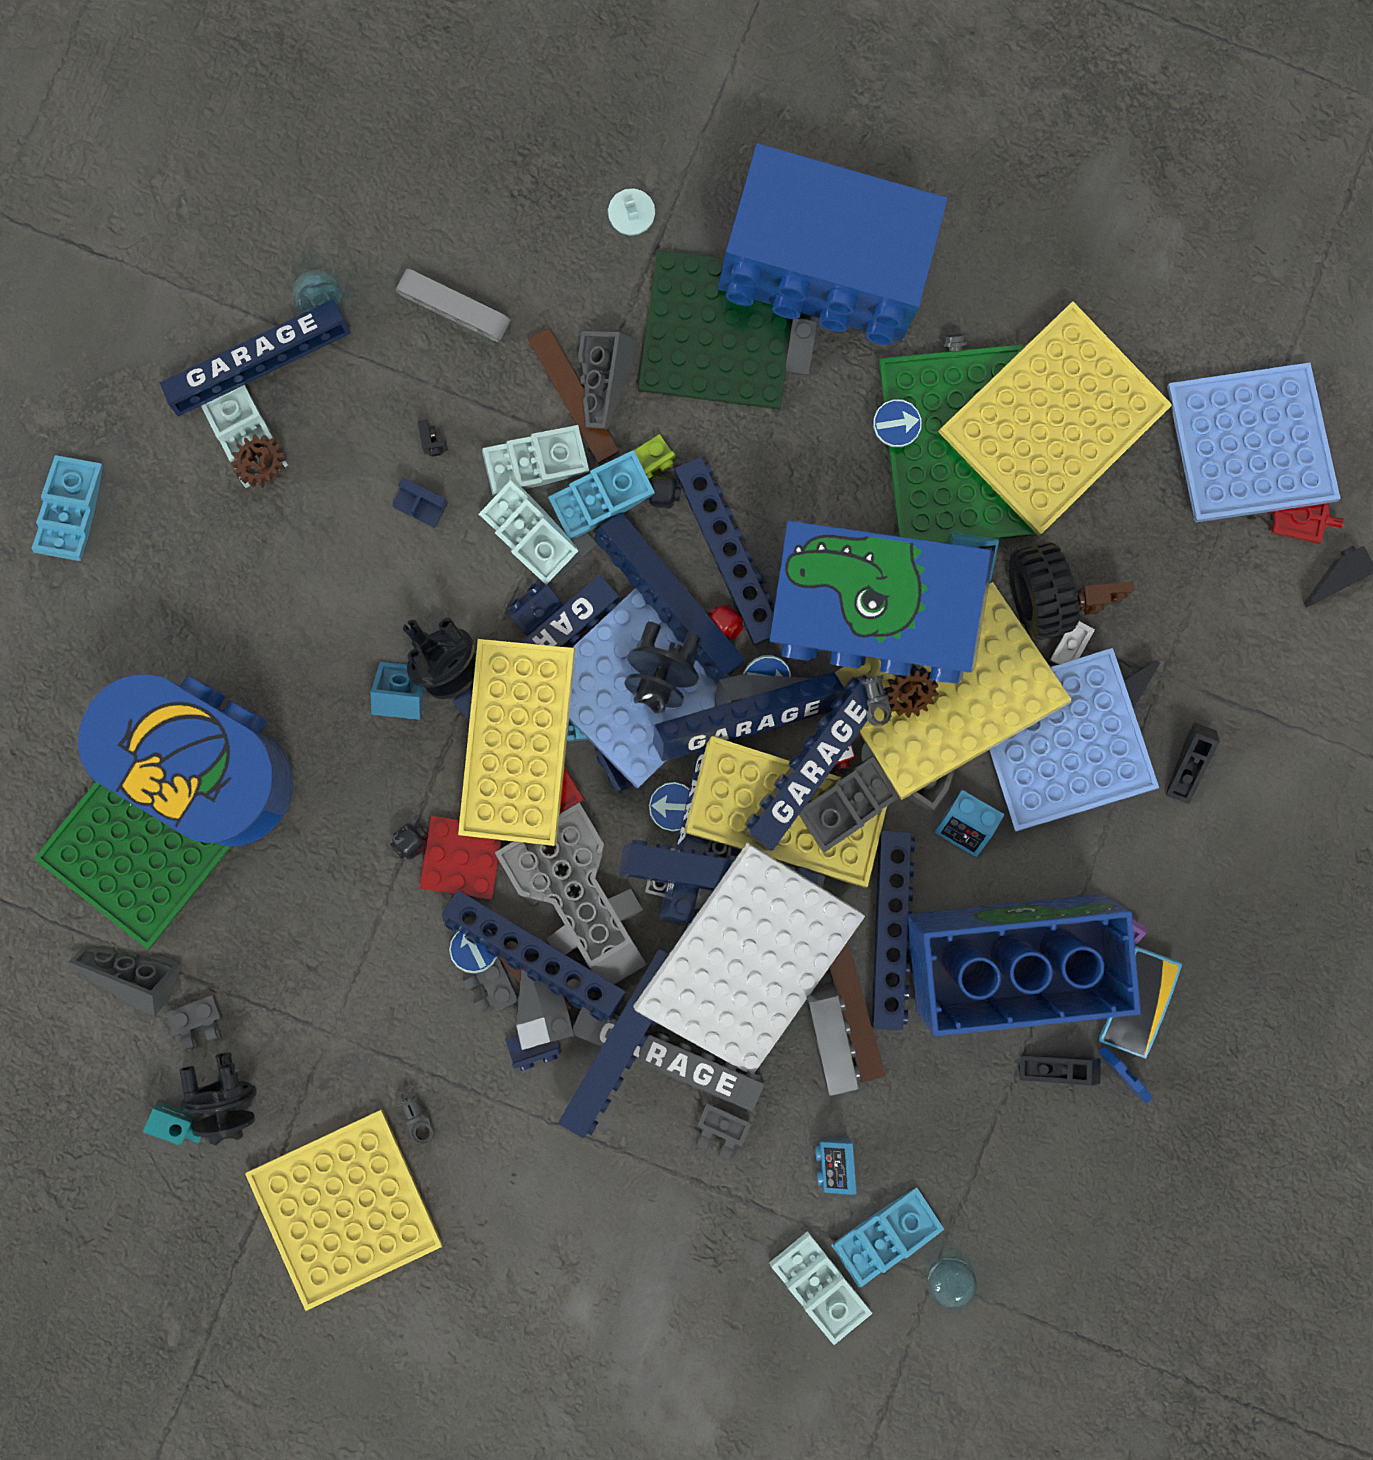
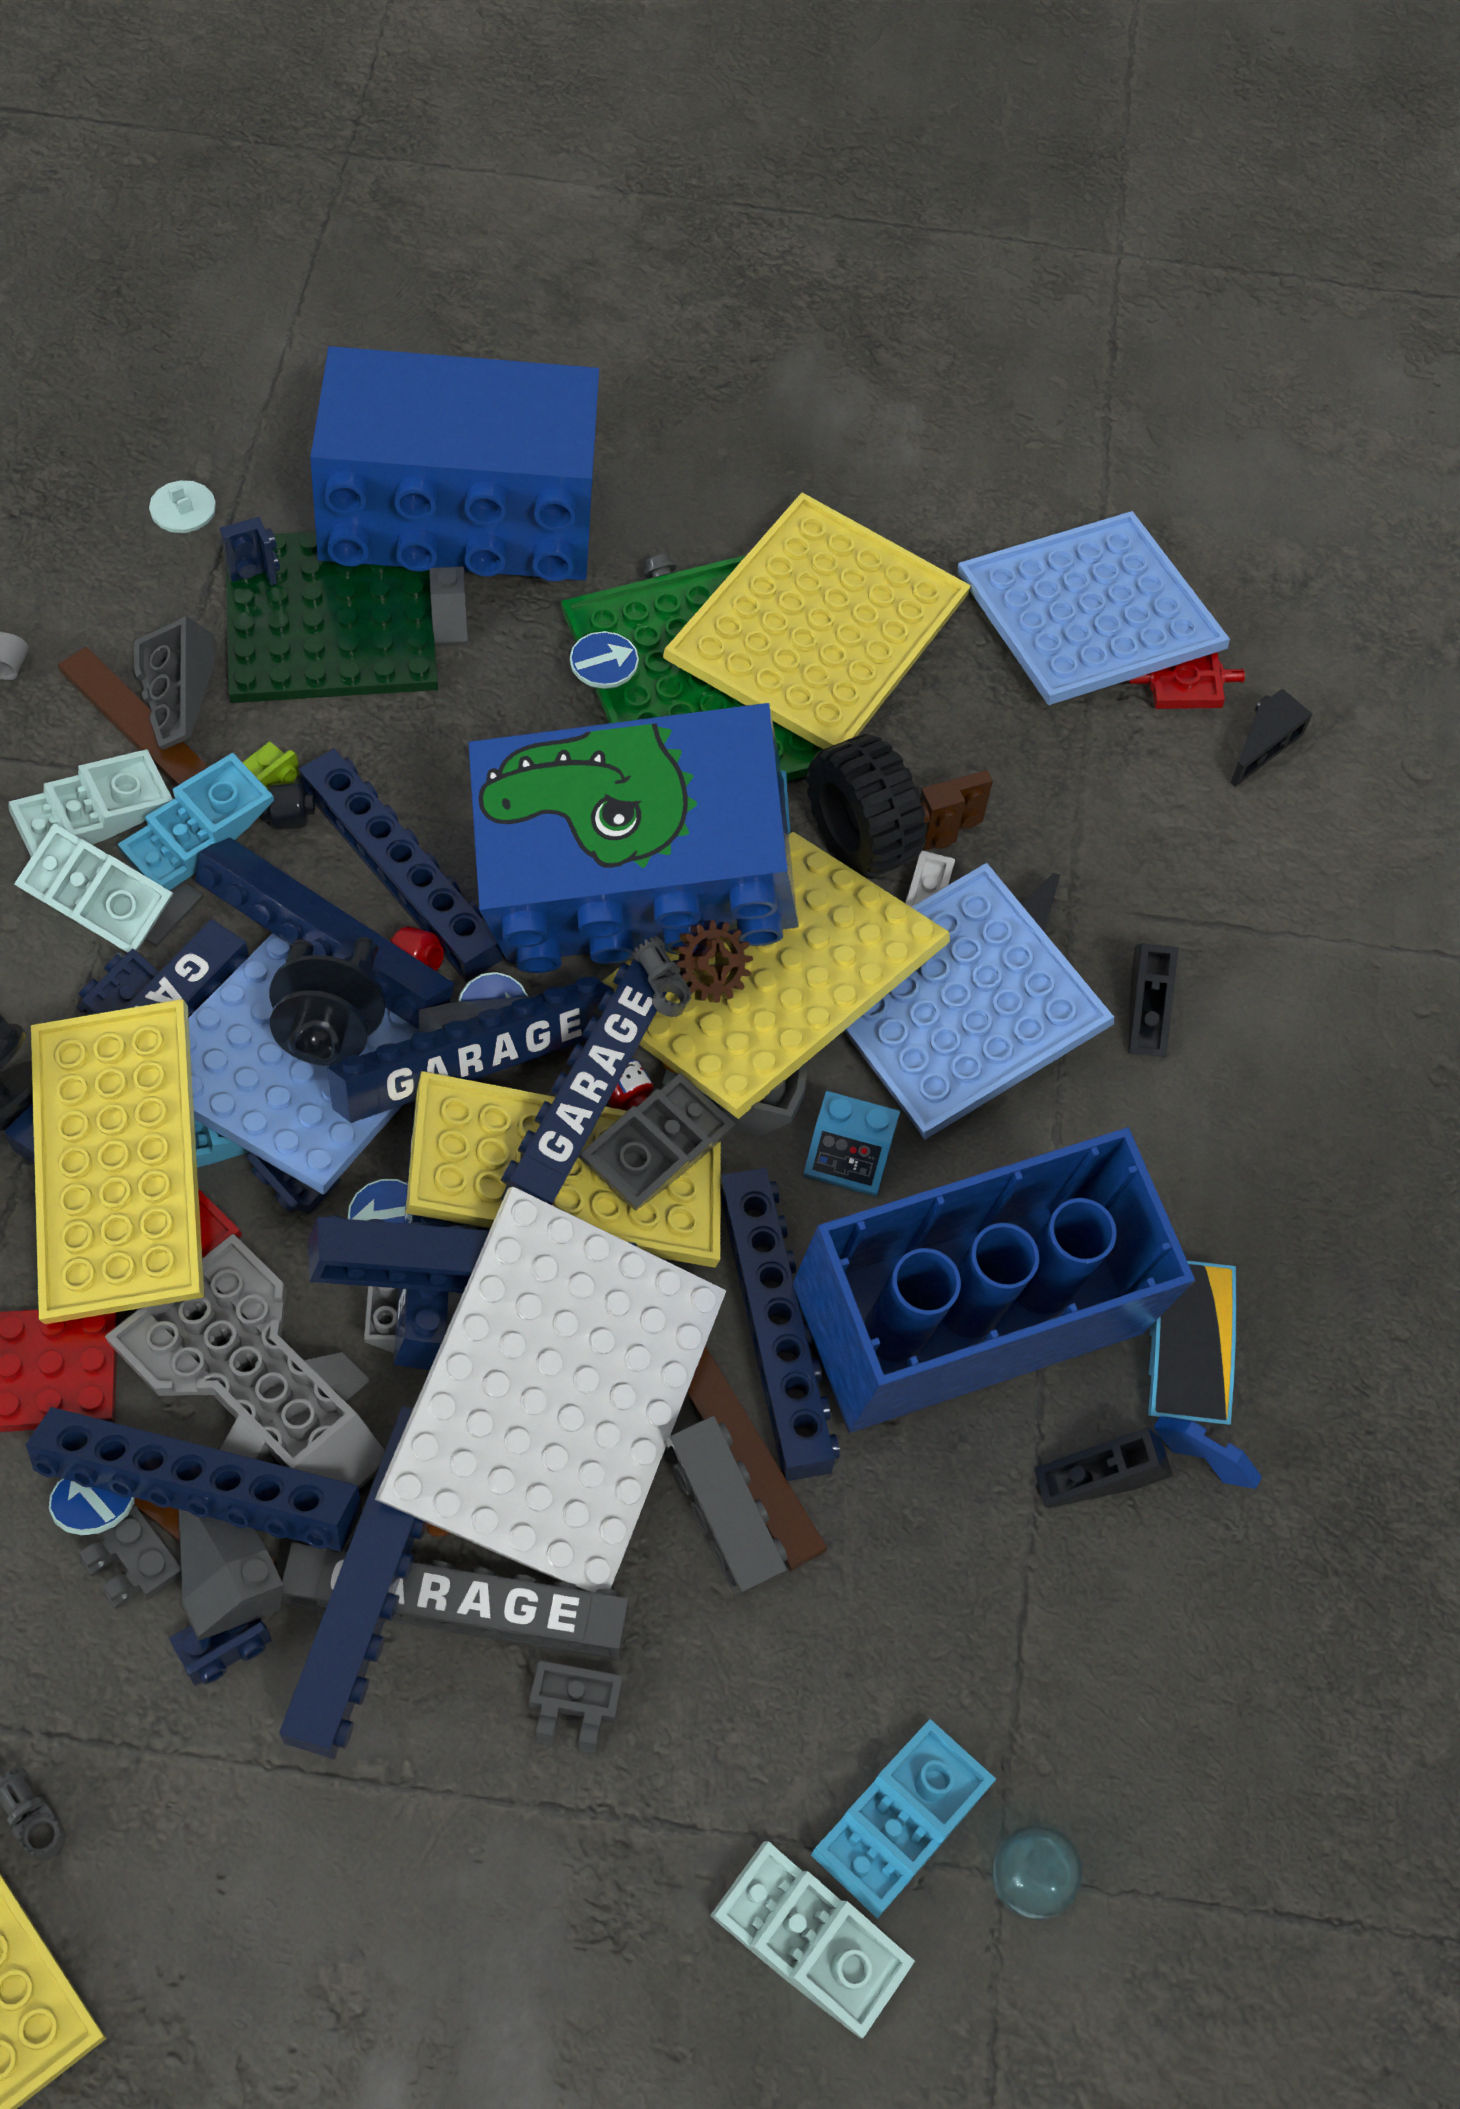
camera: 15 degrees left, 25 degrees down
(672, 280) = (250, 550): none -> dark blue bracket
(837, 1165) = (784, 1707): slope -> none

